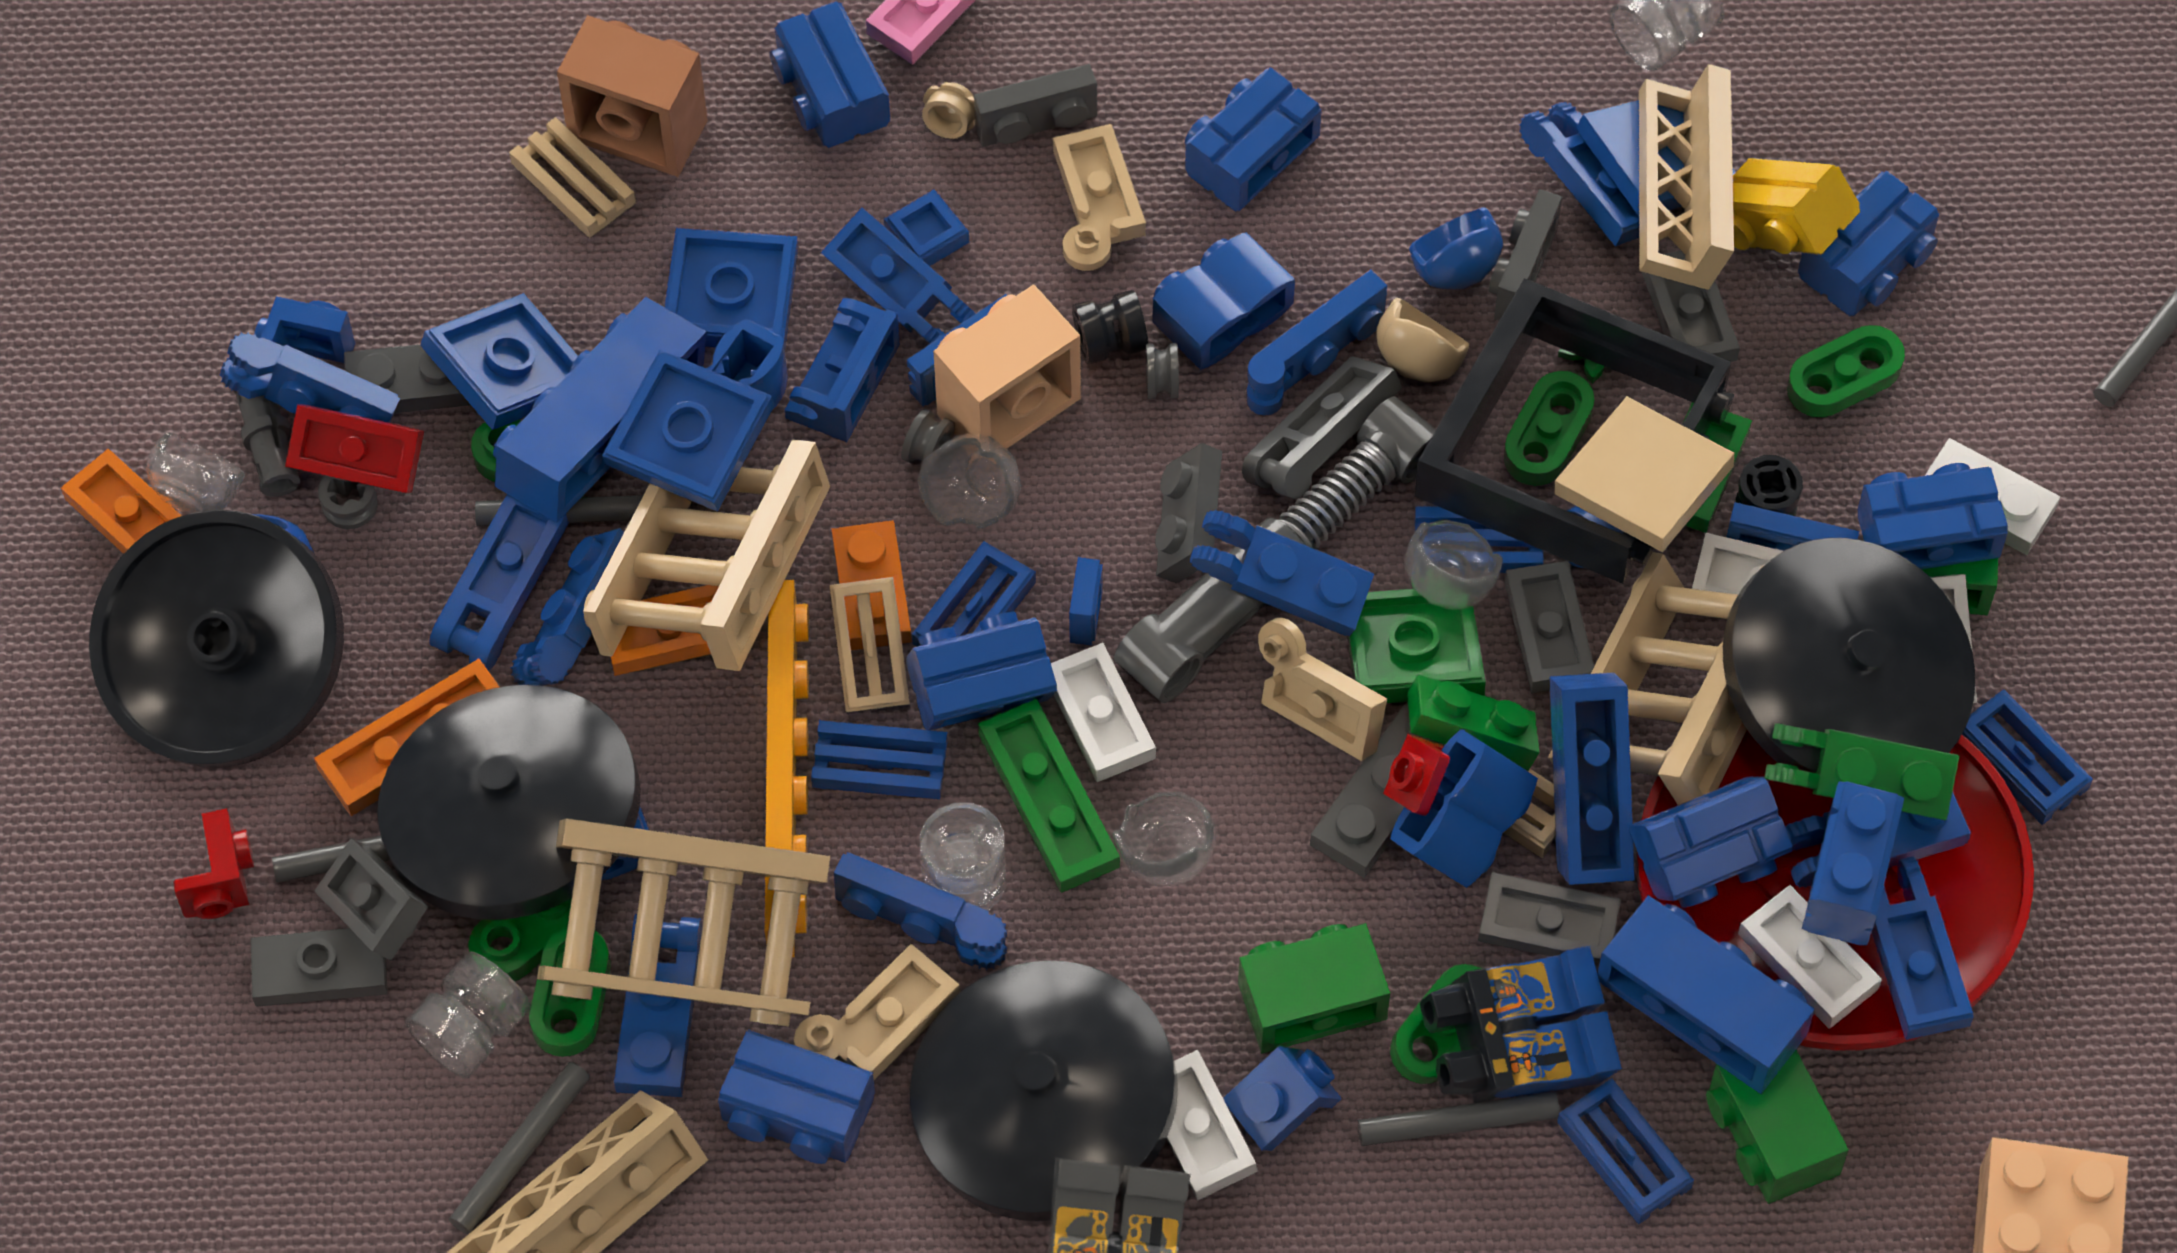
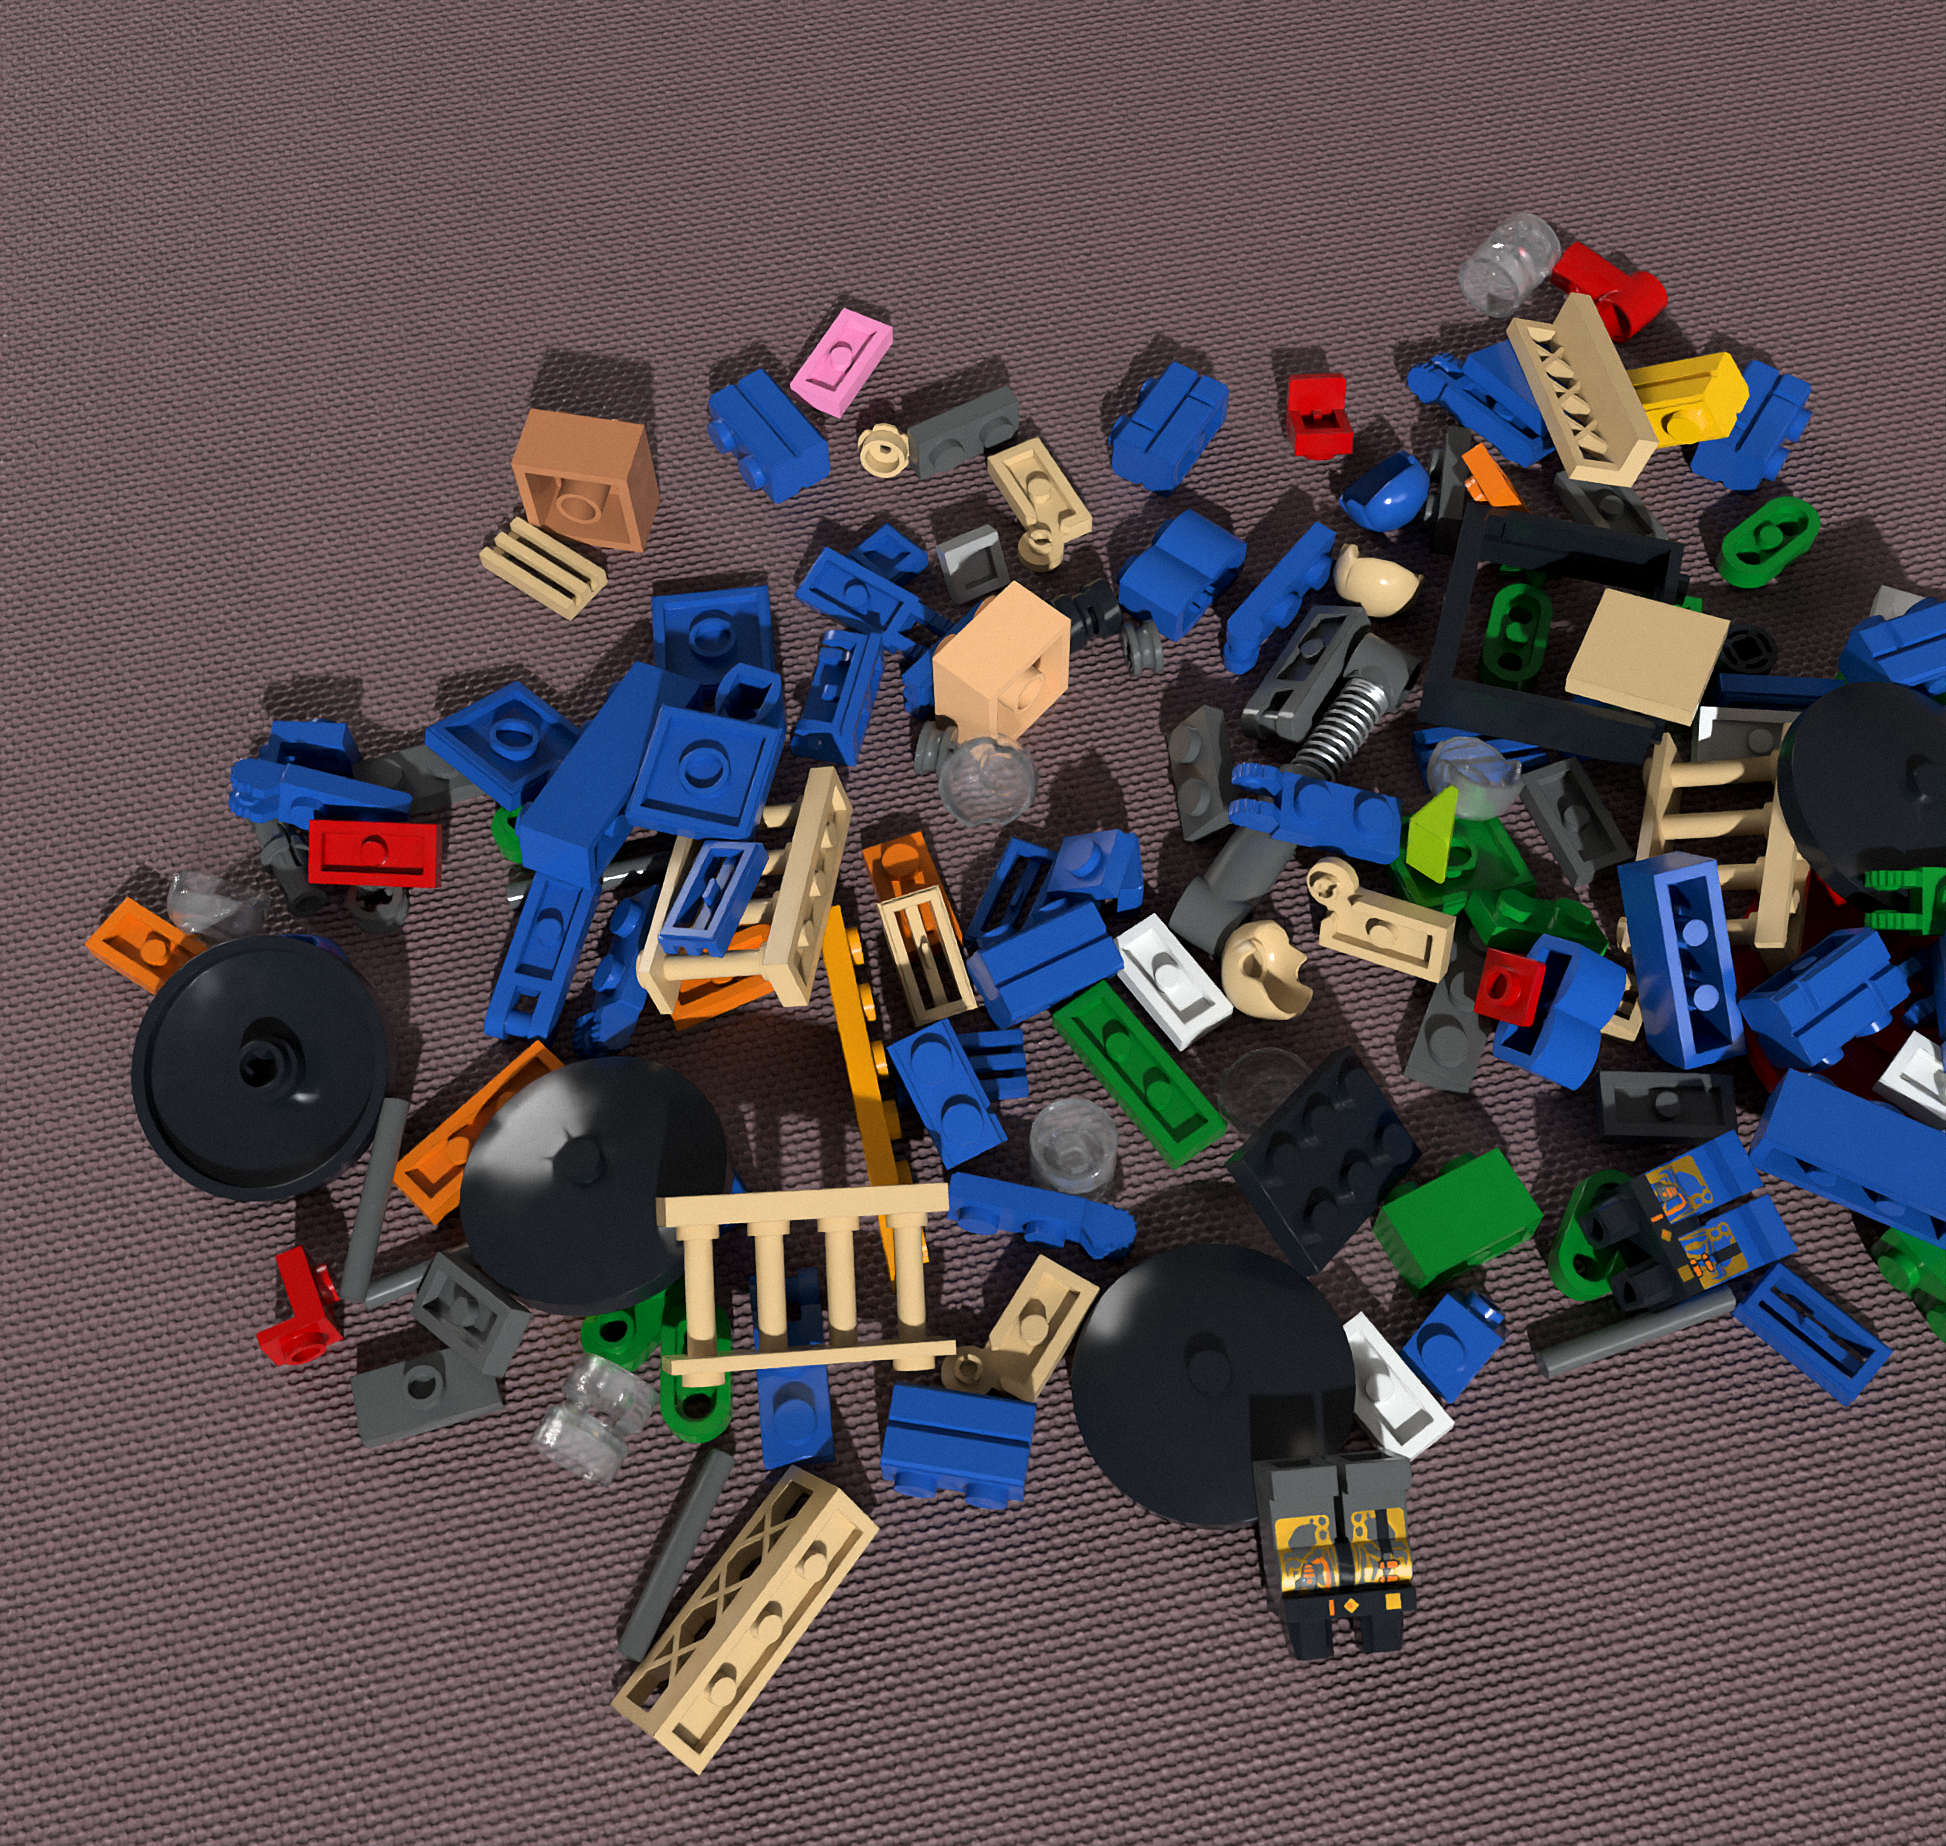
camera: 10 degrees left, 0 degrees up
(299, 780) = (374, 1200): none -> dark grey bar
(680, 553) = (723, 897): none -> blue tile
(855, 778) = (947, 1093): none -> blue brick
(1011, 252) = (973, 564): none -> light grey tile
(1047, 588) = (1091, 867): none -> blue bracket
(1194, 719) = (1262, 972): none -> tan hair
(1196, 904) = (1324, 1161): none -> black plate
(1394, 614) = (1431, 835): none -> lime slope
(1412, 151) = (1317, 416): none -> red bracket
(1567, 267) = (1490, 483): none -> orange plate
(1774, 73) = (1622, 300): none -> red piece

